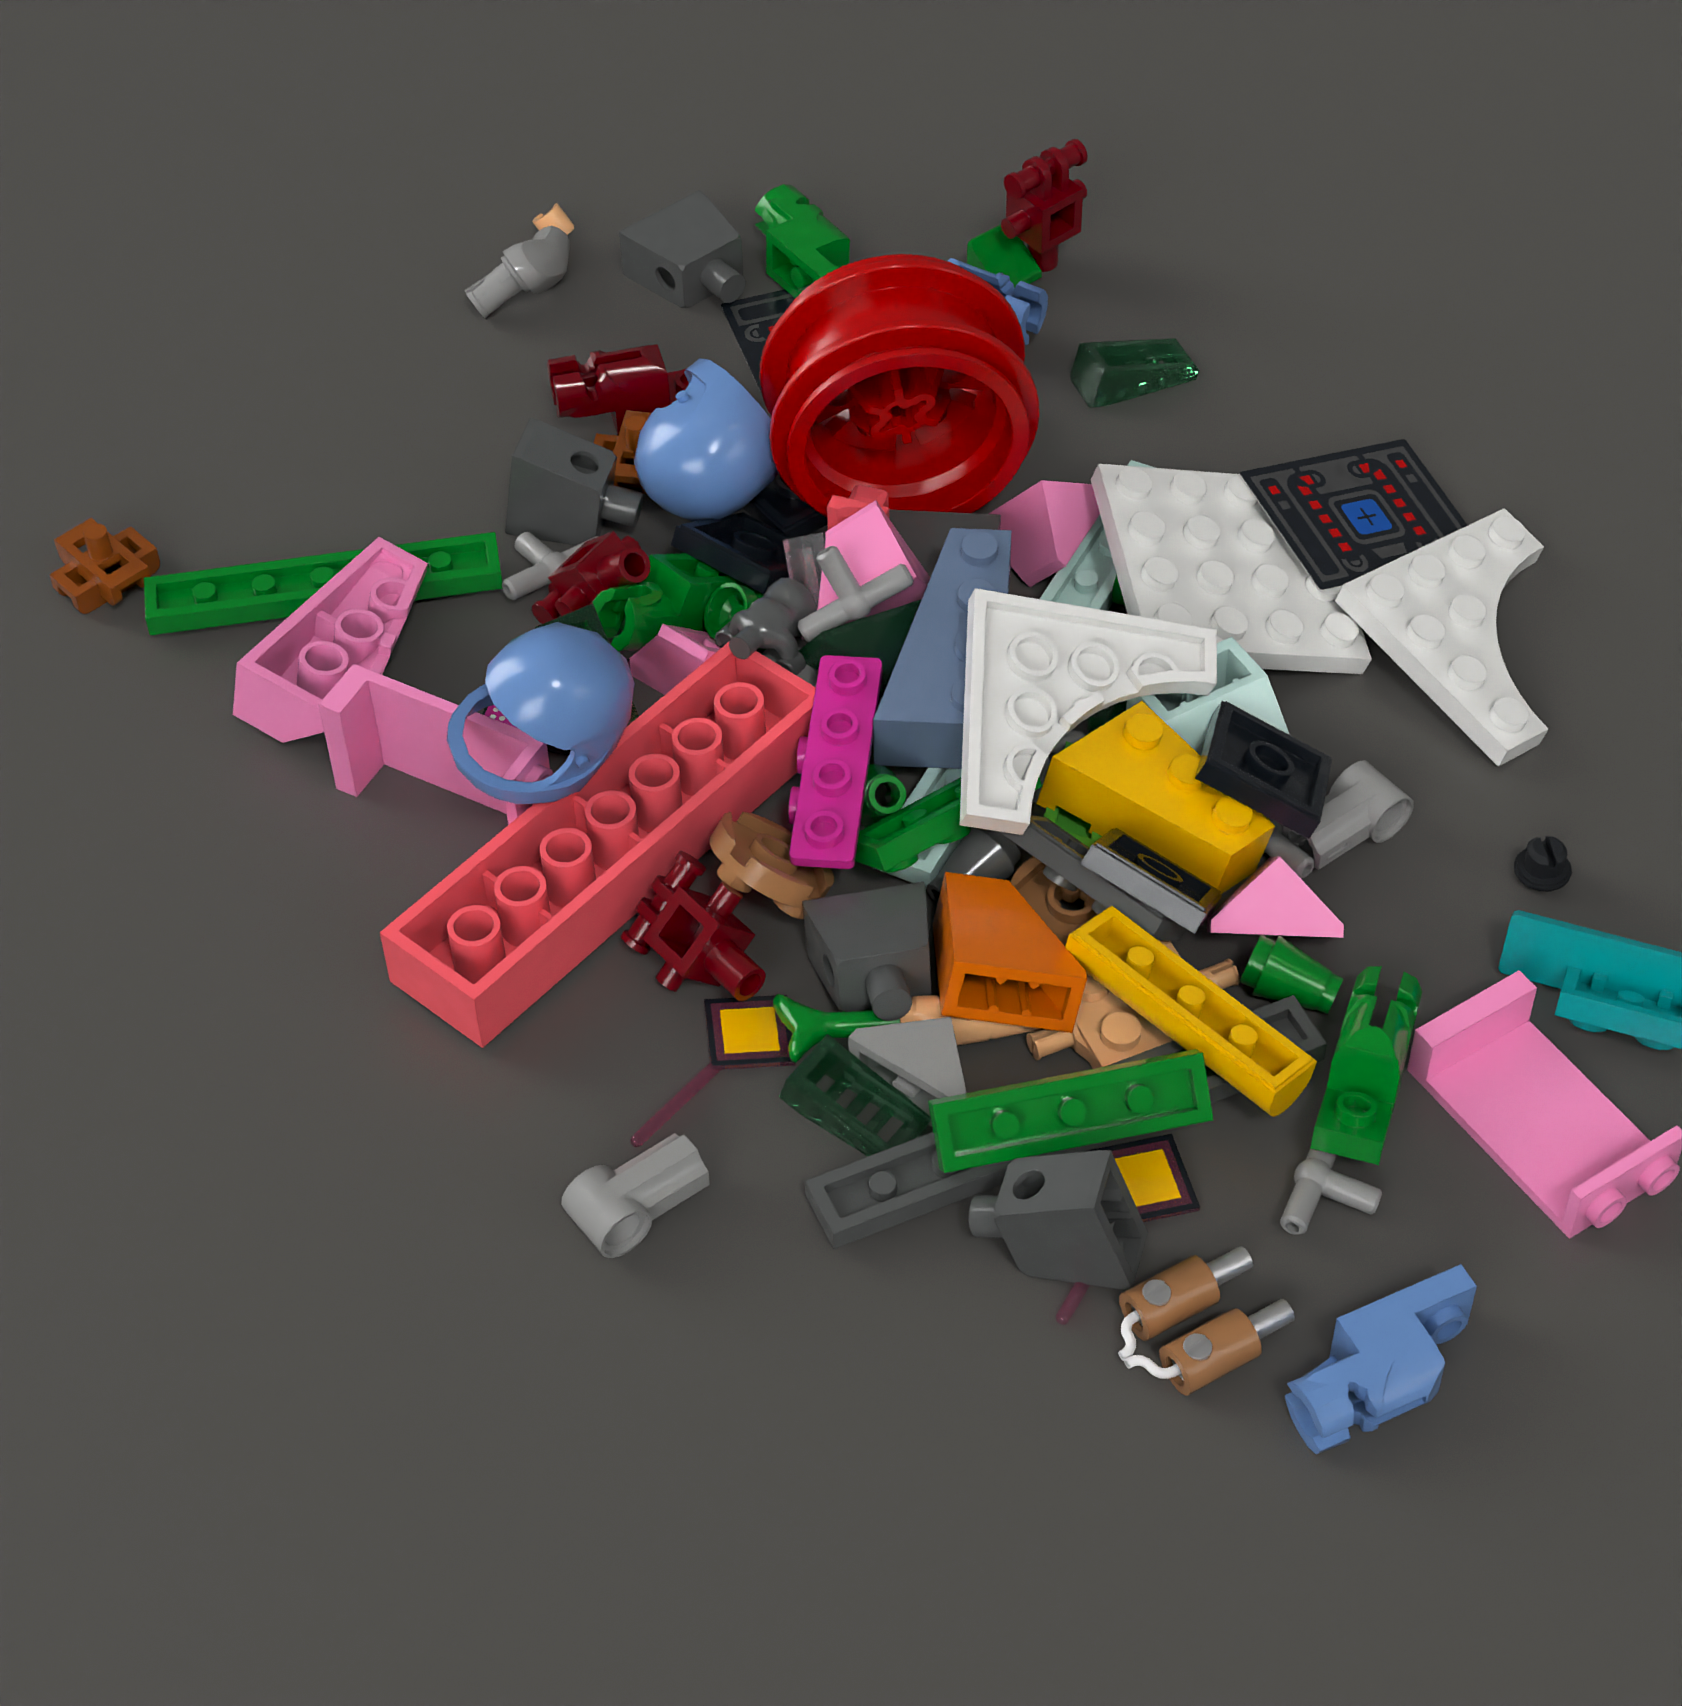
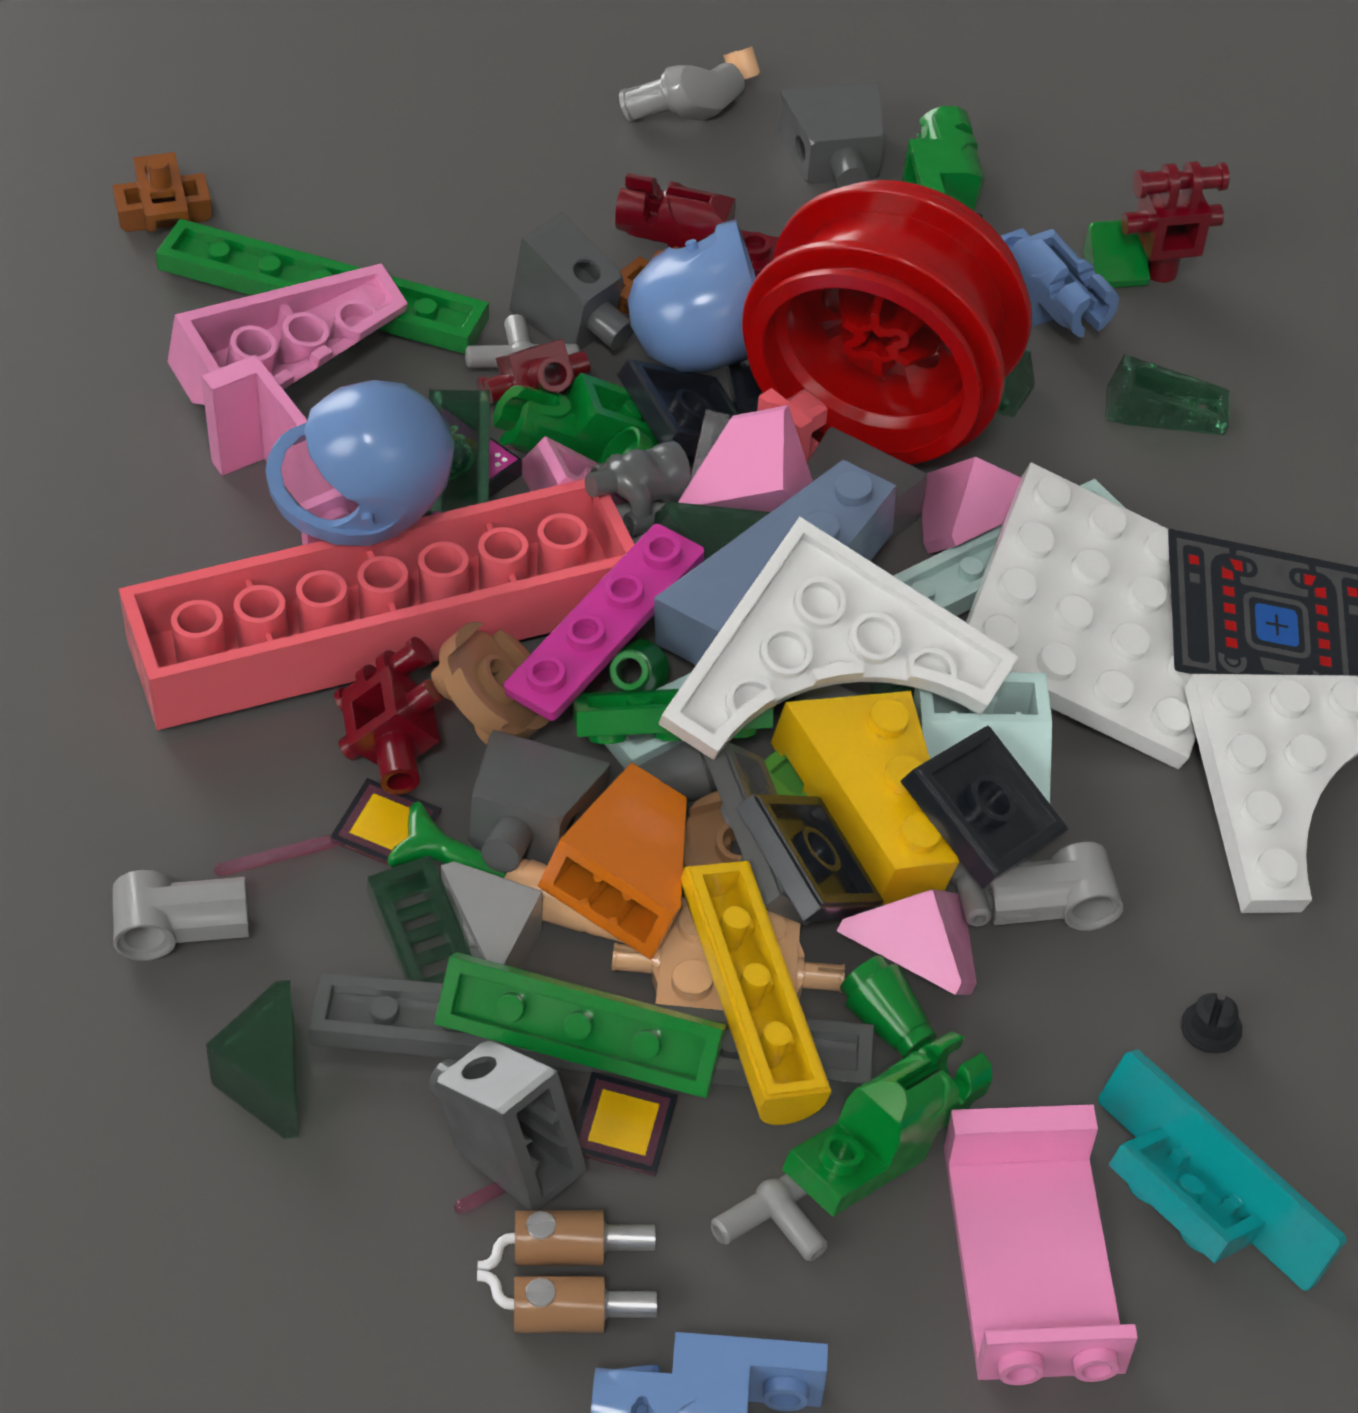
camera: 25 degrees right, 0 degrees up
(815, 1284) = (257, 1060): none -> clear green slope
(853, 600) = (716, 487): light grey piece -> none

